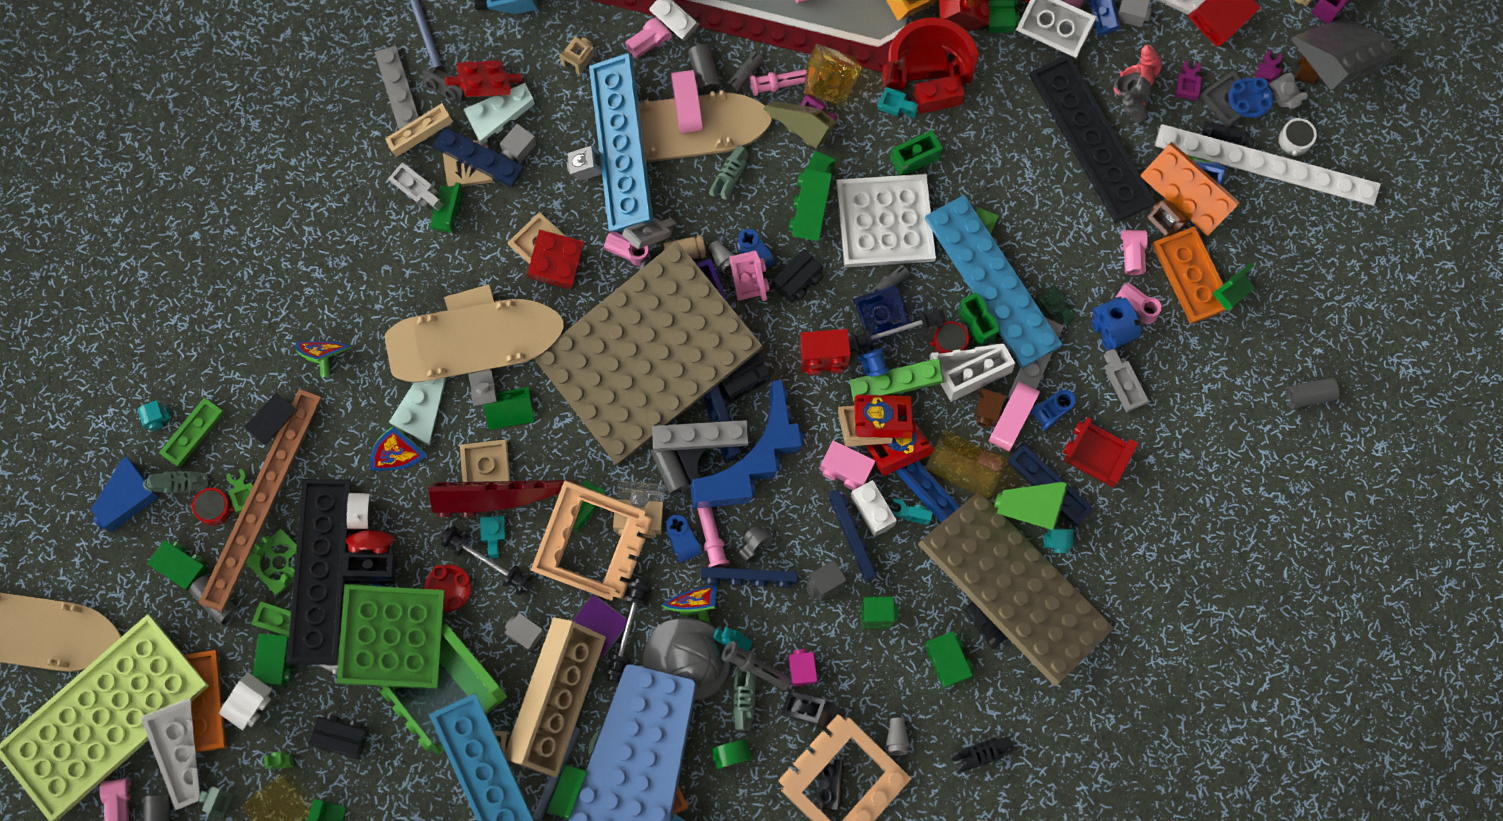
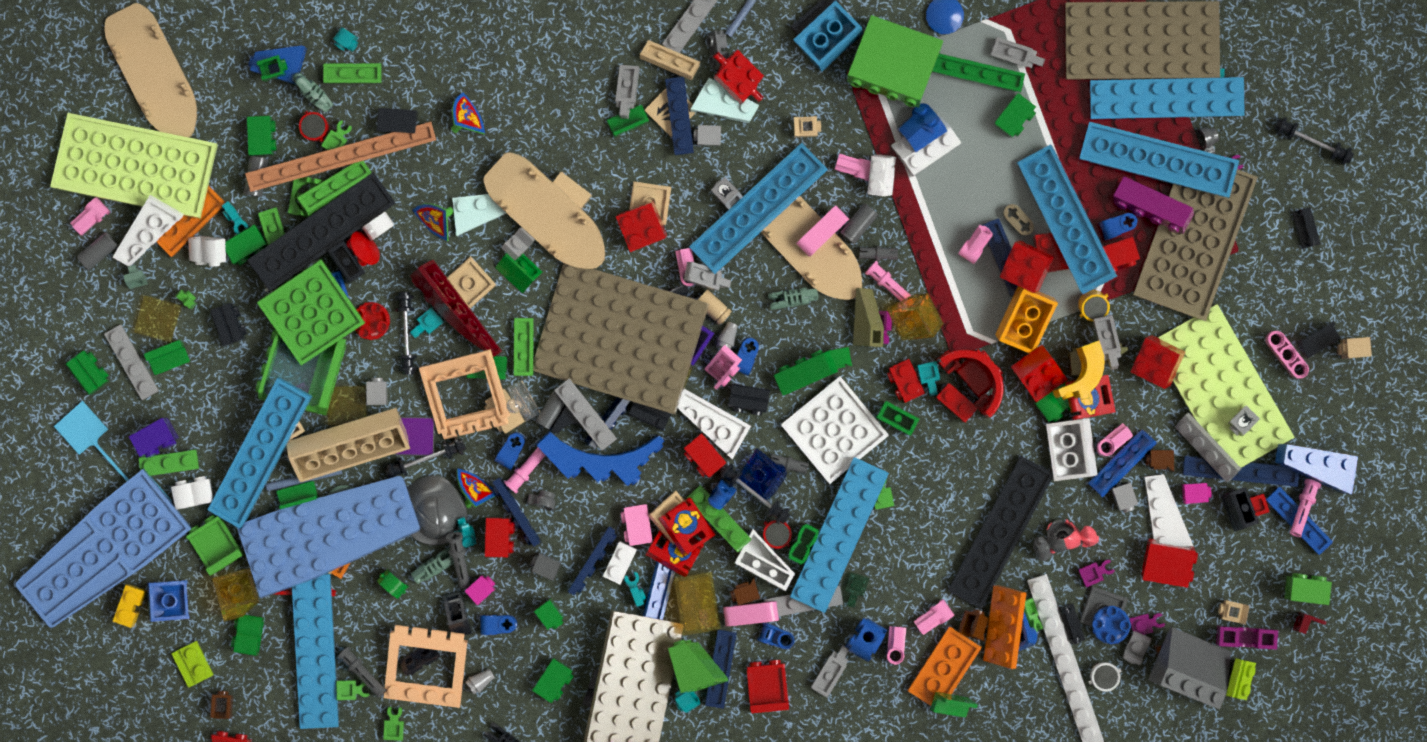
camera: 55 degrees right, 15 degrees up
(110, 498) = (265, 71): none -> green window
(229, 652) = (231, 213): none -> teal plate
(285, 528) = (333, 187): none -> bright green plate
(513, 672) = (347, 405): none -> clear yellow tile
(588, 455) = (523, 346): none -> bright green plate
(761, 608) = (498, 537): none -> red brick
(787, 325) = (717, 424): none -> white wing
(848, 680) = (494, 624): none -> blue piece
(884, 128) = (906, 381): none -> red bracket
(1373, 13) = (1241, 679): none -> lime plate

